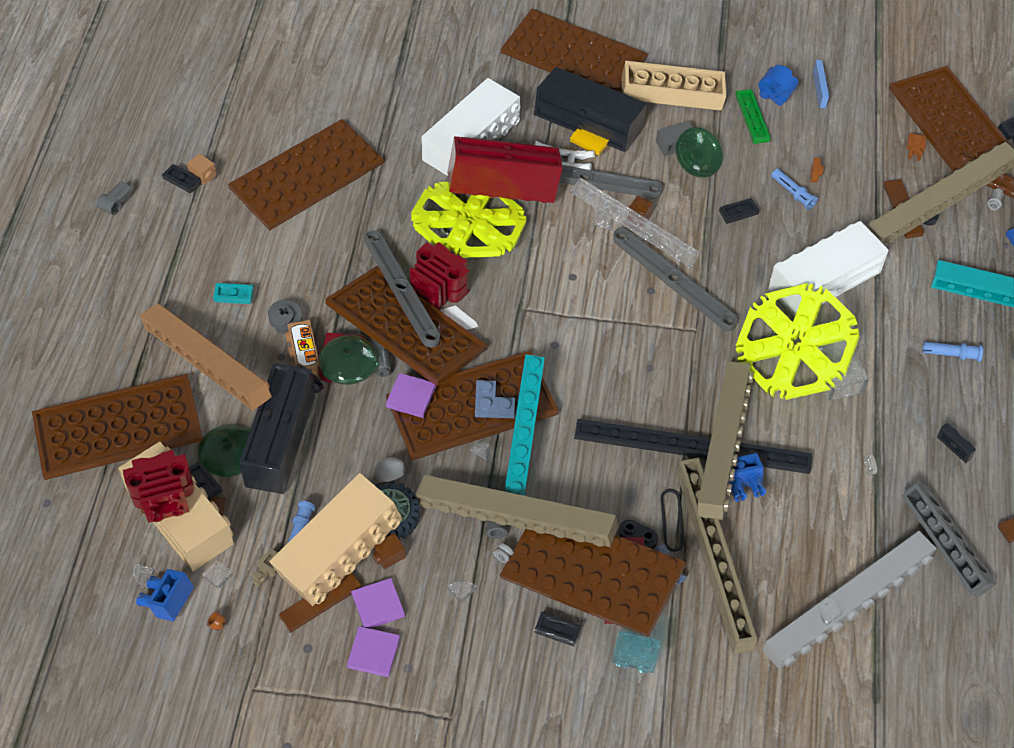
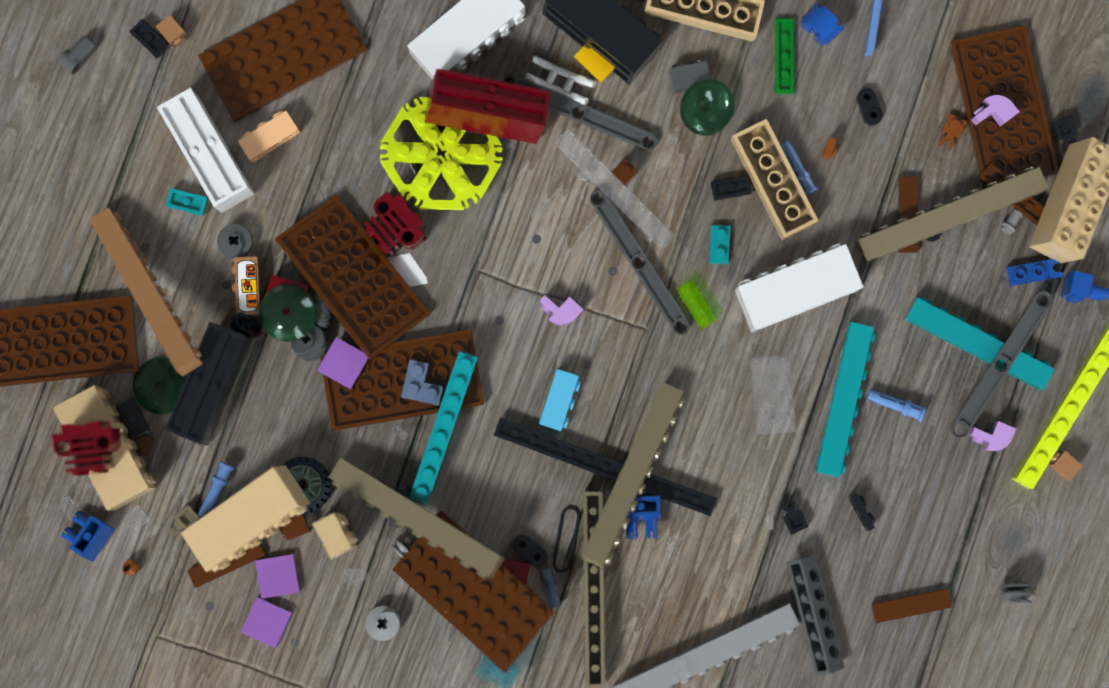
camera: 15 degrees right, 30 degrees up
(248, 242) = (205, 150): none -> white brick
(304, 232) = (268, 136): none -> light nougat brick
(374, 387) = (312, 345): none -> dark grey piece
(389, 469) = (309, 443): light grey hair -> none
(406, 297) = (358, 244): dark grey beam -> none
(434, 540) = (336, 534): none -> tan brick
(501, 636) = (393, 623): none -> light grey piece
(557, 629) = (433, 633): black plate -> none
(612, 327) = (562, 315): none -> lavender brick
(632, 396) = (560, 400): none -> medium azure brick
(734, 299) = (696, 304): none -> clear neon green piece
(743, 255) = (719, 244): none -> teal plate
(776, 196) = (774, 179): none -> tan brick
(807, 350) = (753, 379): neon yellow plate -> none
(838, 139) = (869, 106): none -> black plate
(892, 461) = (794, 519): none -> black plate
(903, 355) = (844, 399): none -> teal brick
(949, 116) = (999, 107): none -> lavender brick

